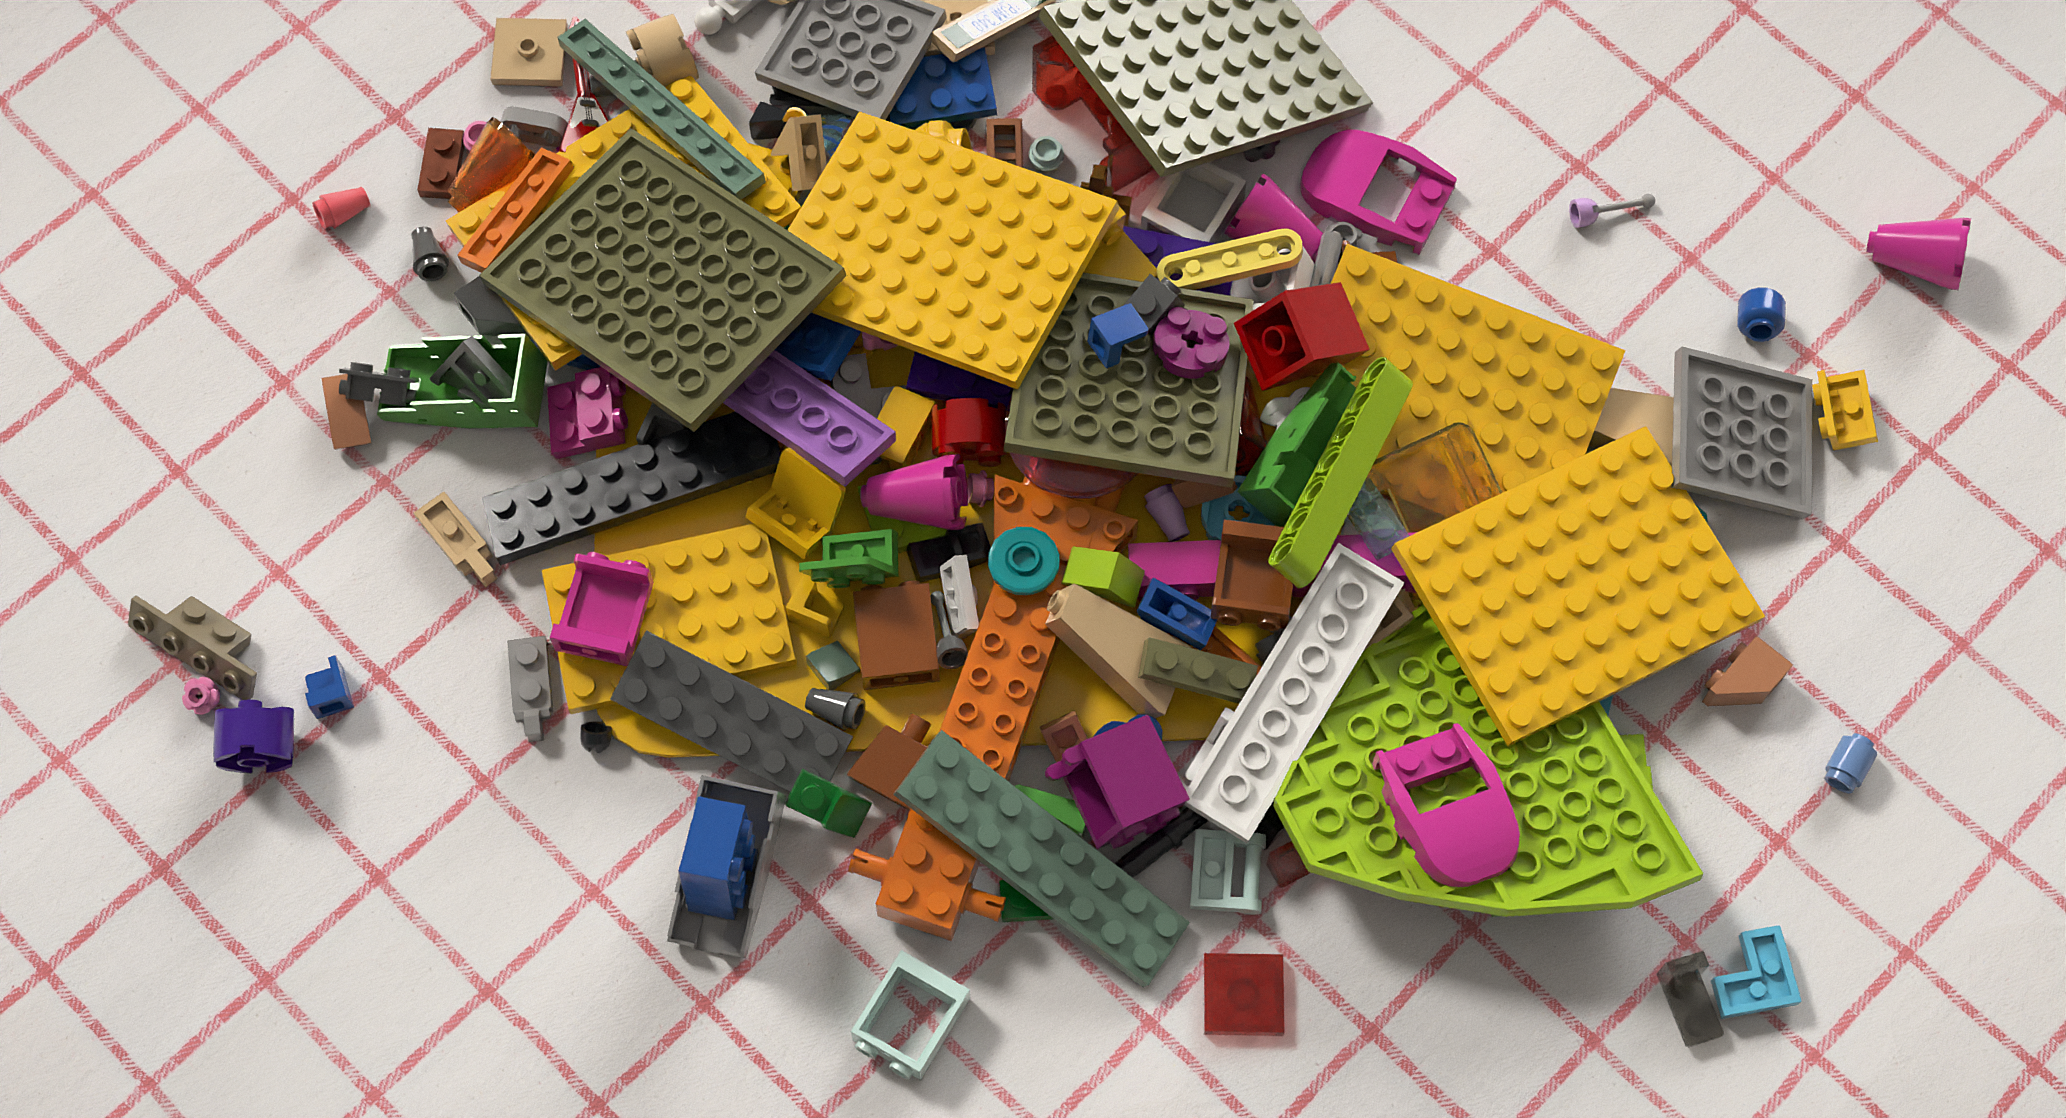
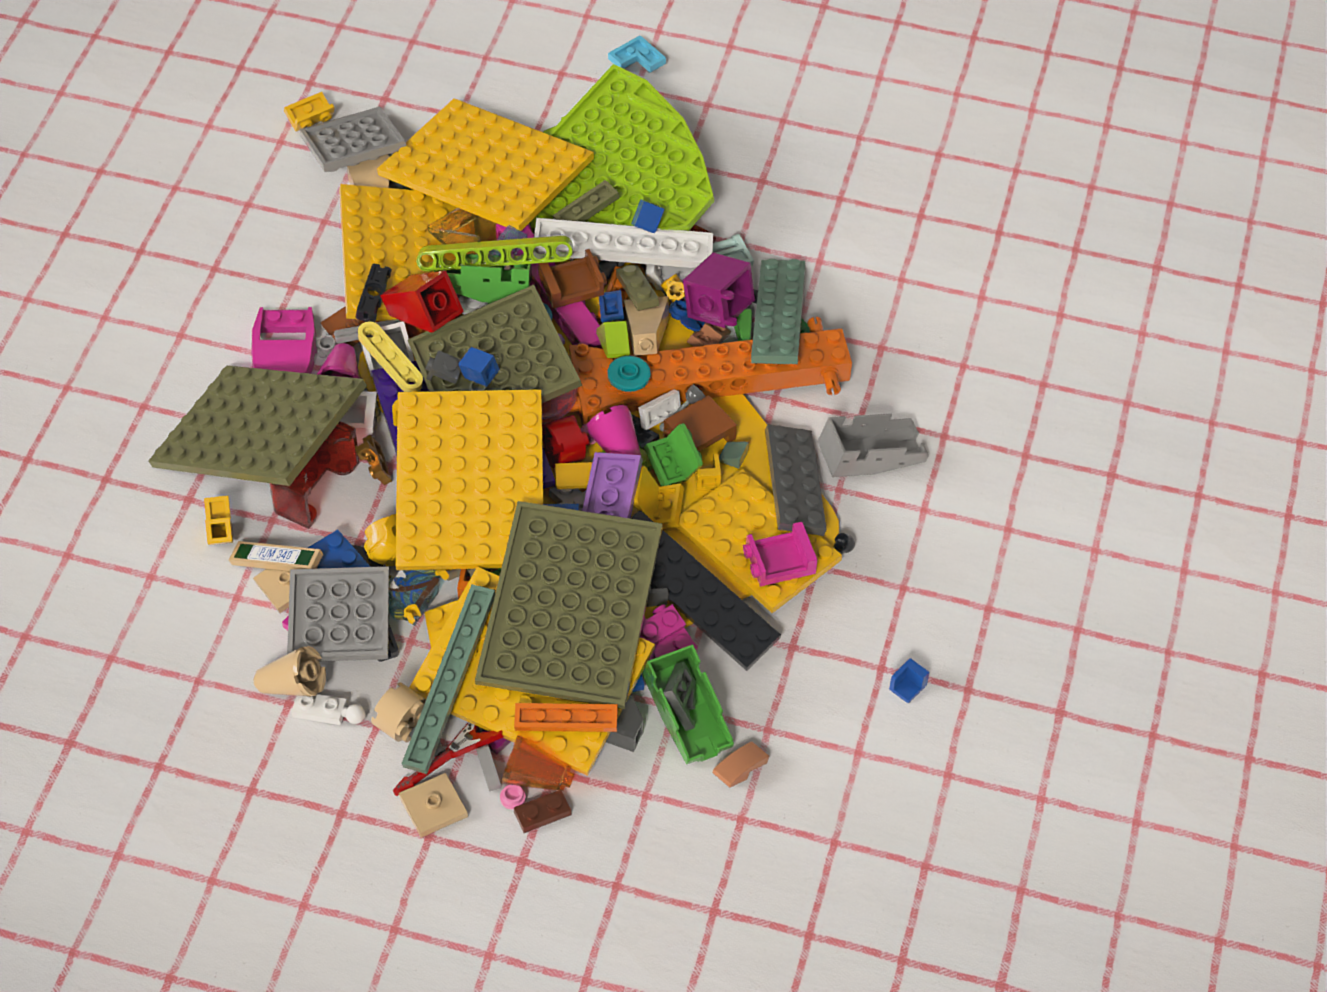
camera: 120 degrees left, 15 degrees down
(199, 639) = (925, 760): dark tan bracket -> none
(210, 696) = (957, 741): bright pink plate -> none
(253, 737) = (965, 688): dark purple brick -> none
(340, 206) = (610, 846): coral cone -> none
(363, 381) = (715, 745): dark grey hinge -> none
(428, 256) = (611, 779): dark grey cone -> none
(456, 537) = (779, 667): tan hinge -> none
(530, 684) = (837, 590): light grey hinge -> none
(717, 858) = (880, 424): blue brick -> none
(766, 122) = (412, 644): black slope -> none
(804, 145) = (430, 602): tan slope -> none
(828, 804) = (809, 418): green slope -> none
(837, 707) = (756, 436): dark grey cone -> none
(891, 758) = (768, 401): dark orange torso -> none
(931, 981) = (890, 329): light aqua window -> none
(1005, 126) = (346, 522): nougat slope -> none
(1046, 153) = (350, 501): light aqua plate -> none
(1180, 737) = (673, 288): none -> yellow piece
(1191, 325) = (456, 332): magenta plate -> none
(1243, 994) = (780, 230): clear red plate -> none
(1320, 744) = (647, 216): none -> blue panel
(1383, 301) = (369, 304): none -> black piece
(1403, 679) = (589, 203): none -> olive plate
(1462, 839) = (658, 141): dark pink slope -> none
(1586, 211) = (247, 250): hinge -> none
(1689, 999) = (663, 75): clear smoke bracket -> none
(1750, 678) = (487, 98): nougat slope -> none
(1761, 314) = (271, 159): blue head -> none
(1850, 763) = (506, 55): medium blue brick -> none
(1923, 249) = (194, 103): dark pink cone -> none

